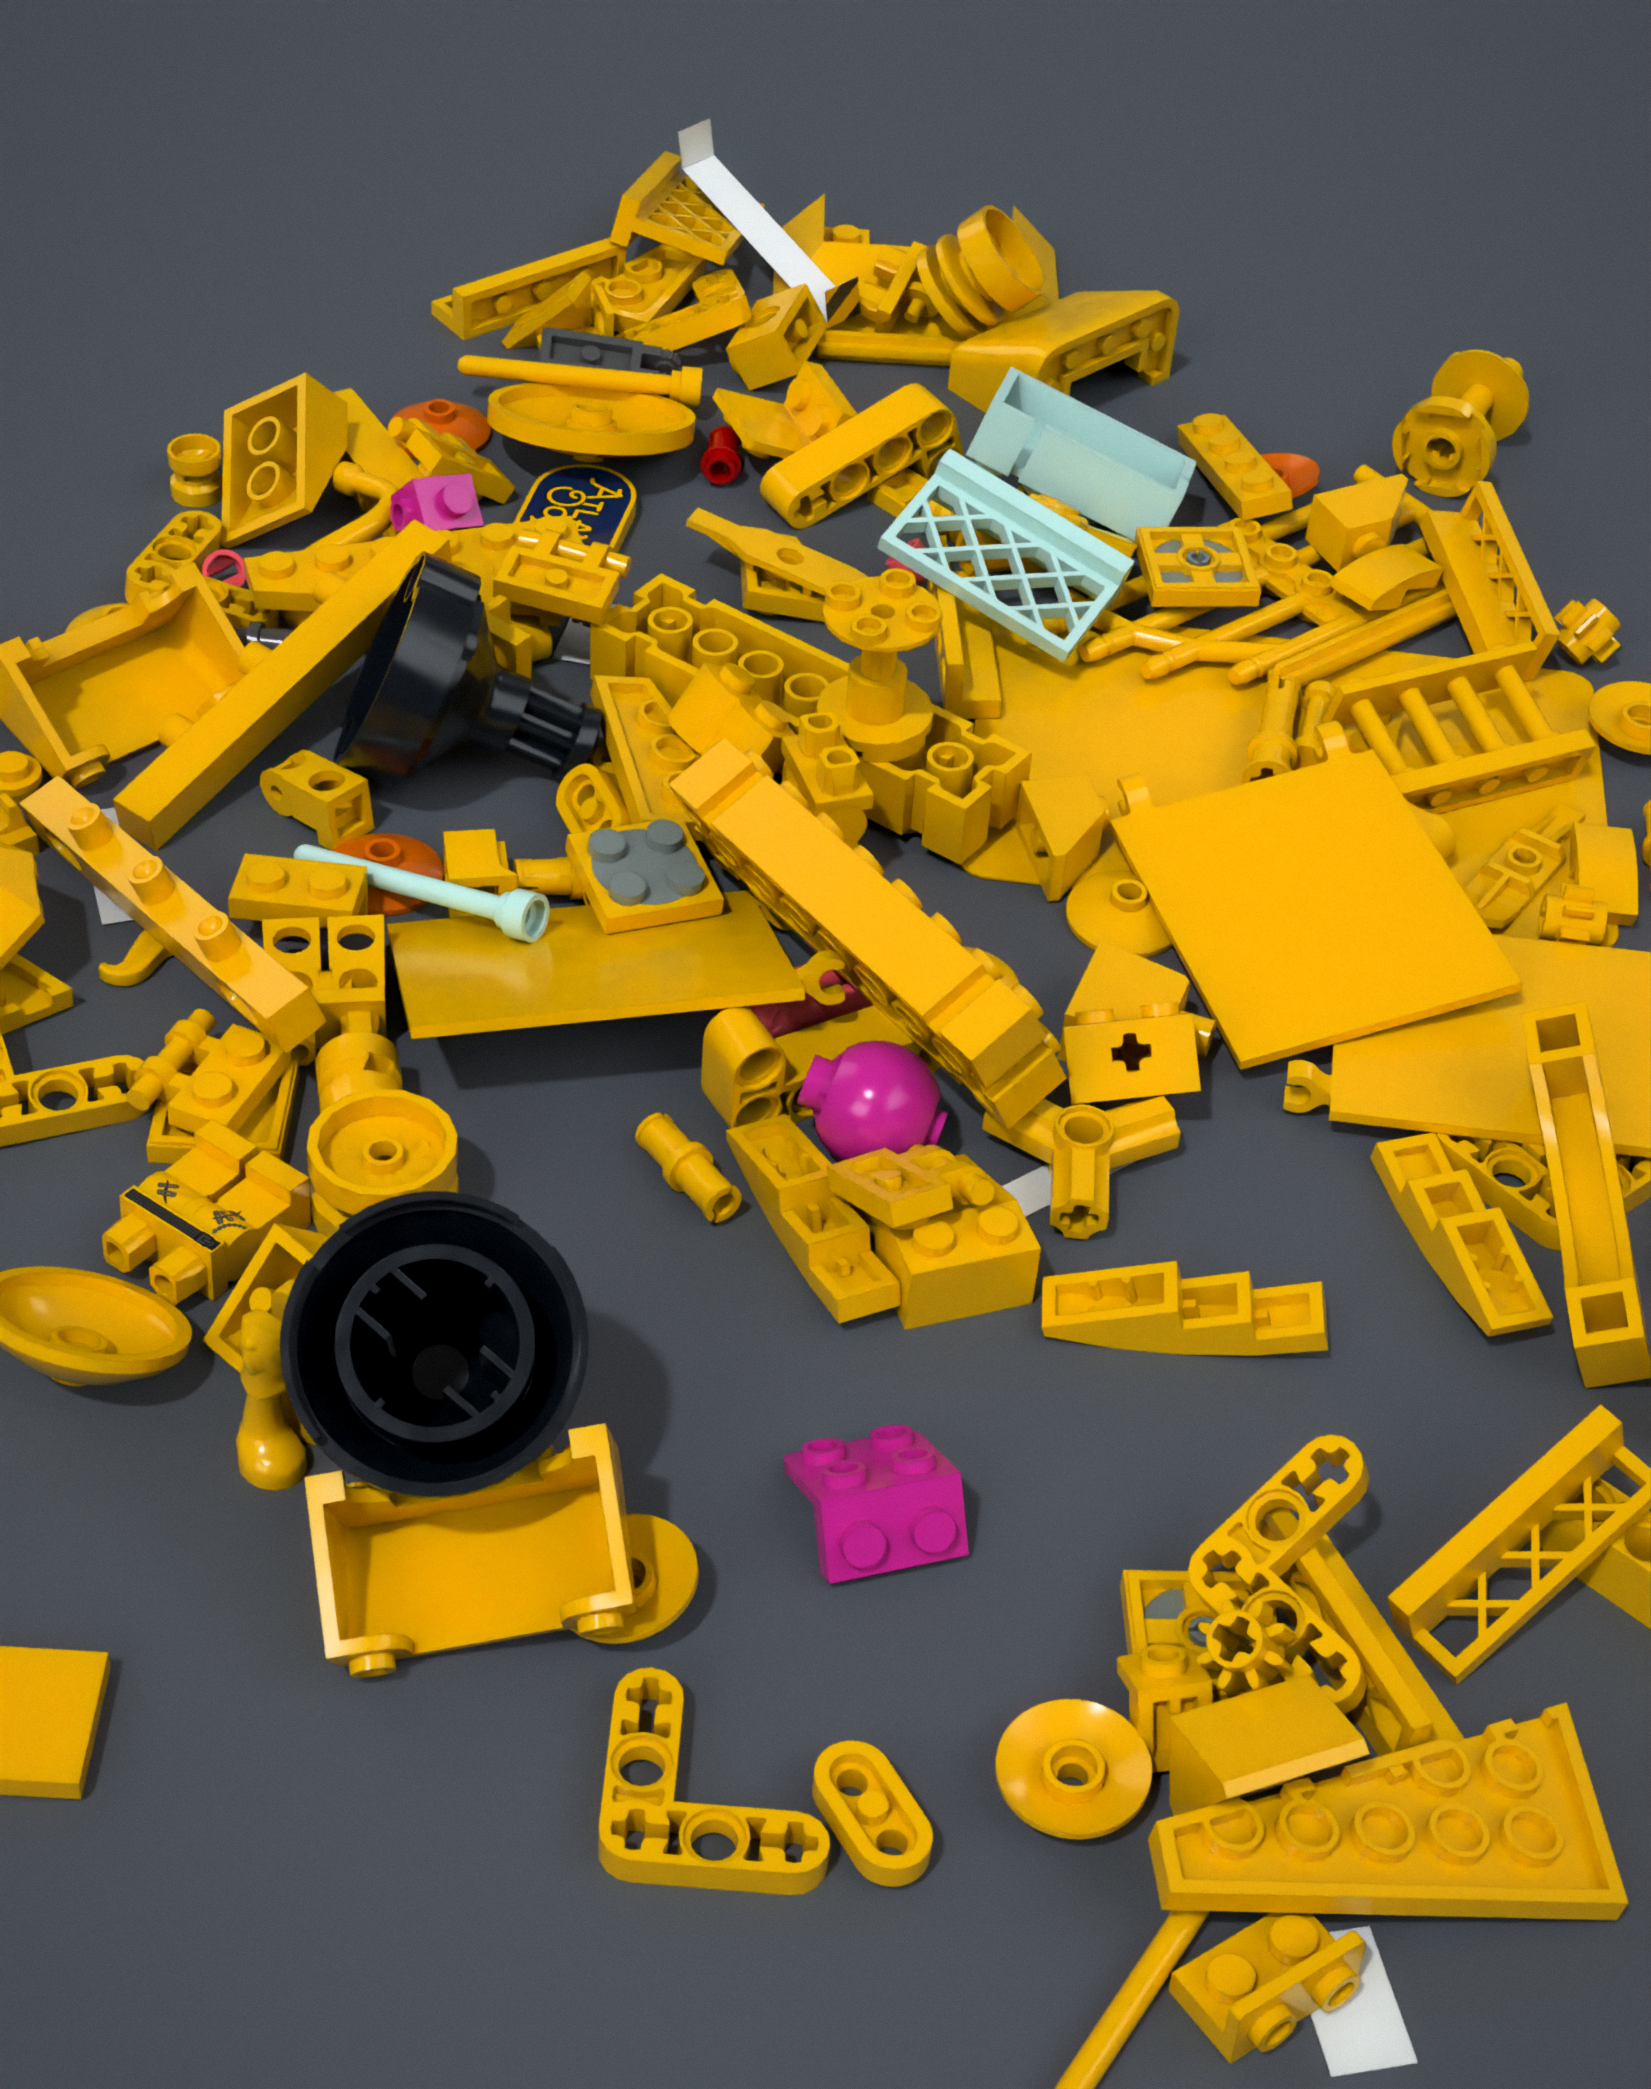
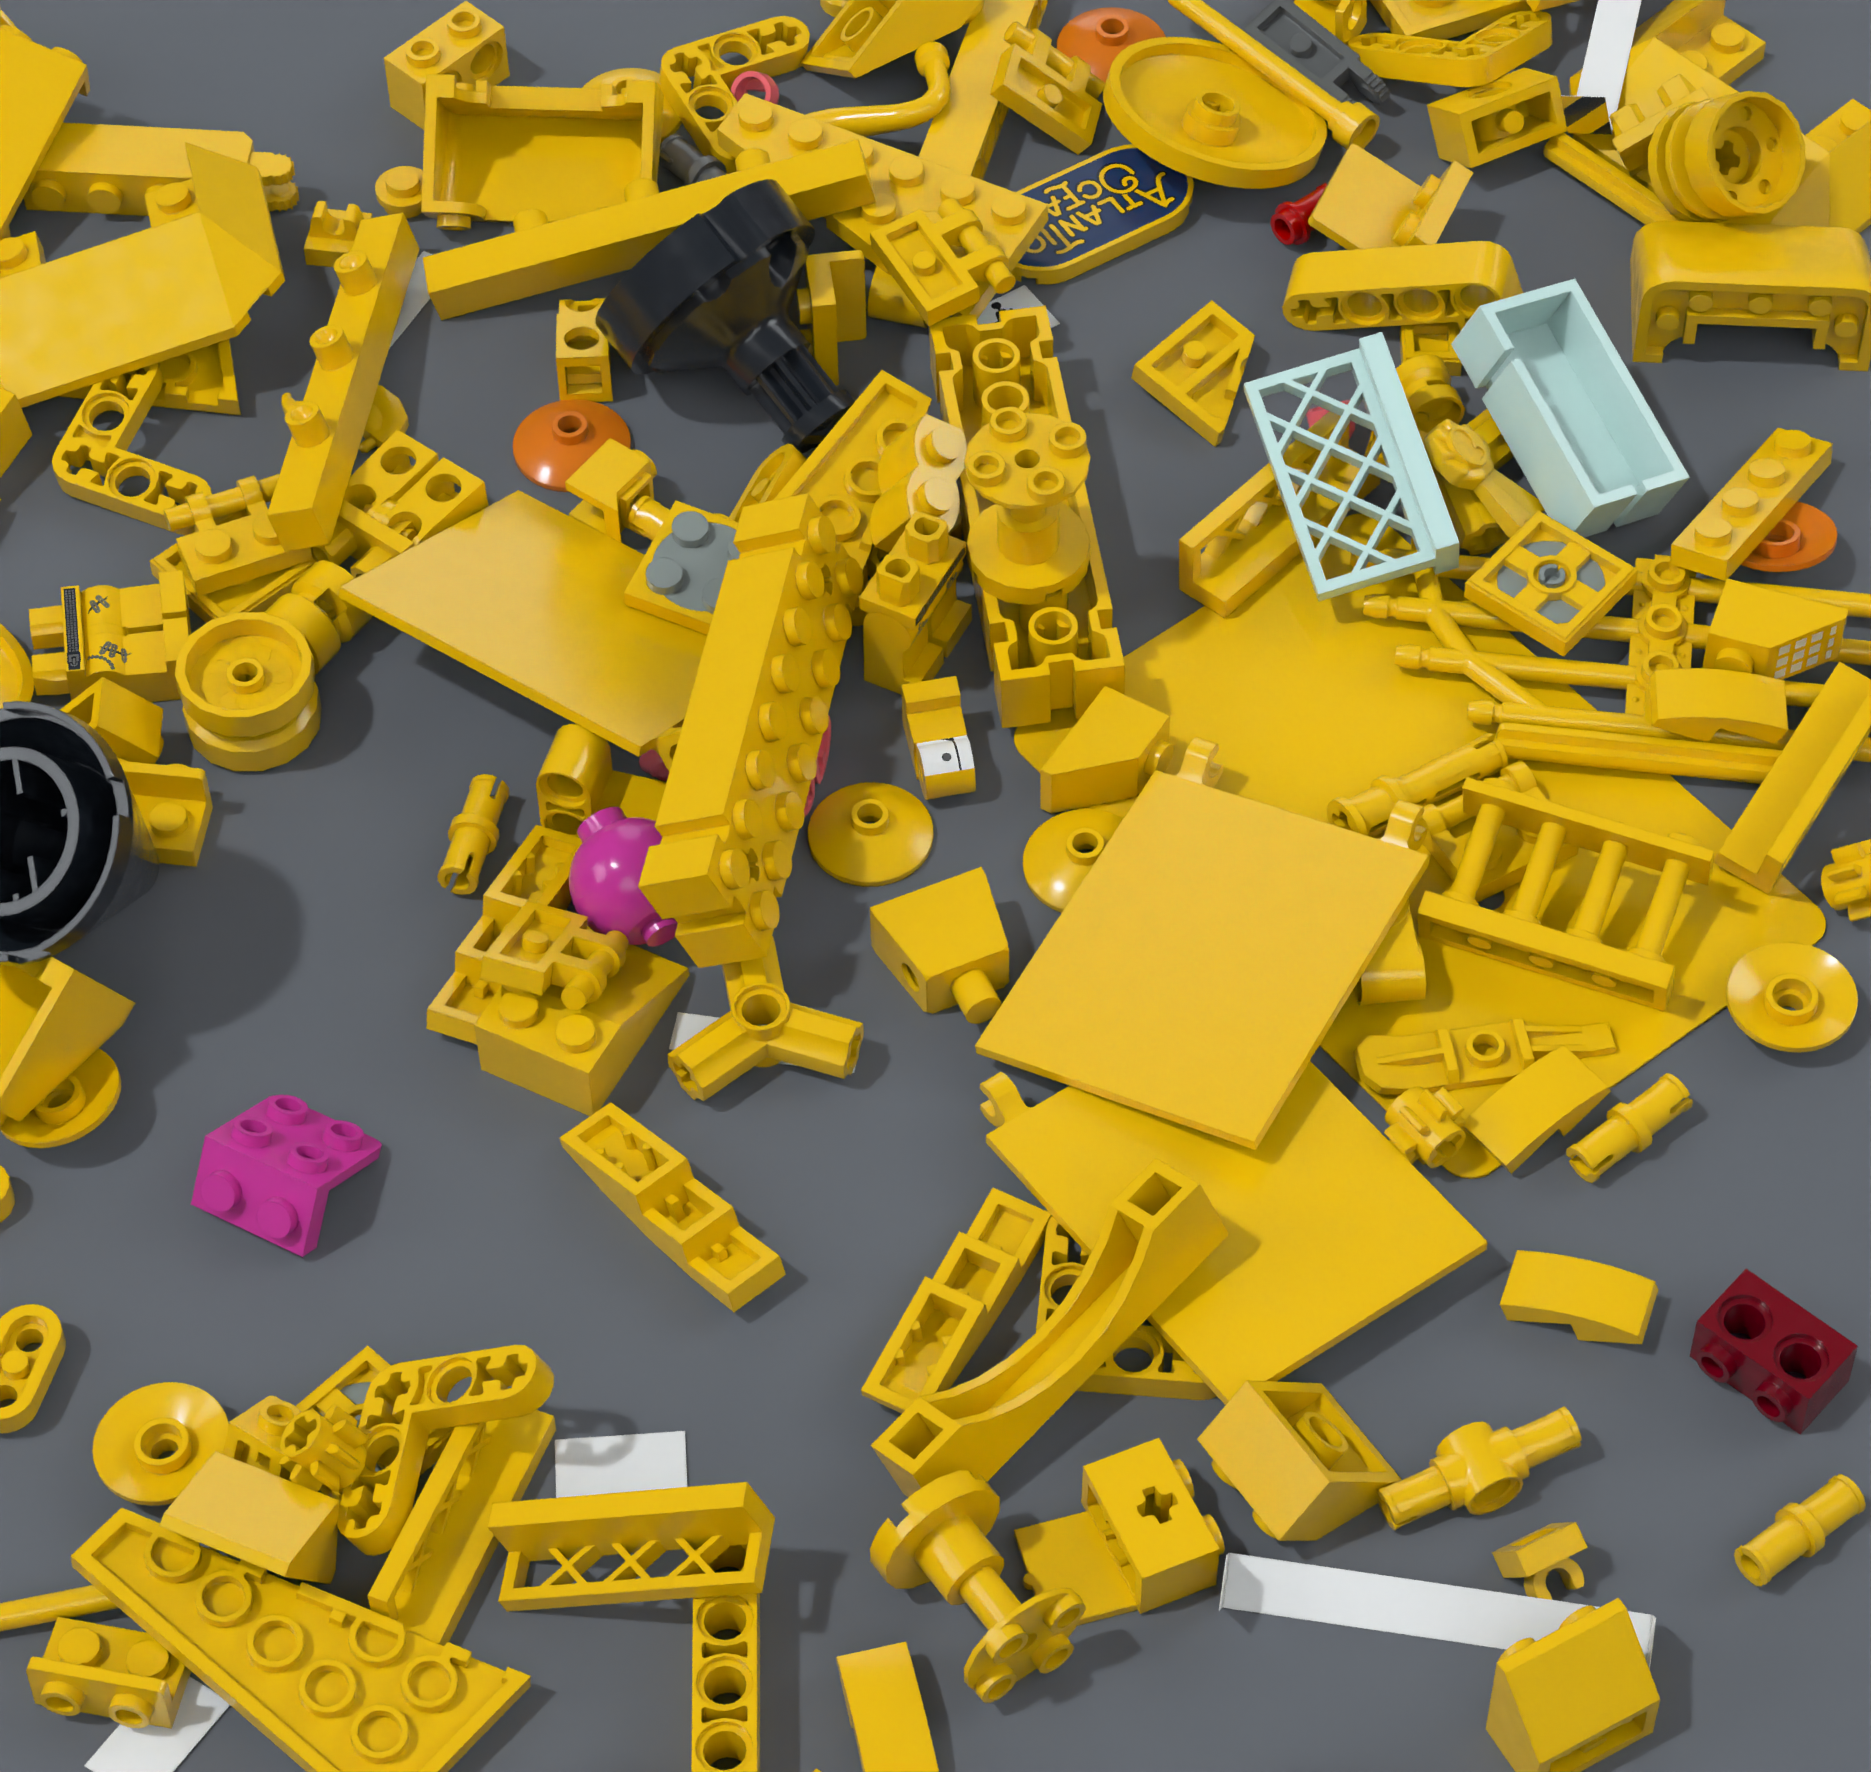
camera: 50 degrees right, 10 degrees up
(297, 889) = (461, 423): yellow bracket -> none
(438, 503) = (944, 133): dark pink bracket -> none
(518, 913) = (570, 542): light aqua piece -> none
(774, 553) = (1212, 388): yellow piece -> none
(963, 899) = (938, 737): none -> yellow leg
(1099, 1077) = (872, 978): yellow brick -> none
(1391, 1522) = (620, 1463): none -> white sticker

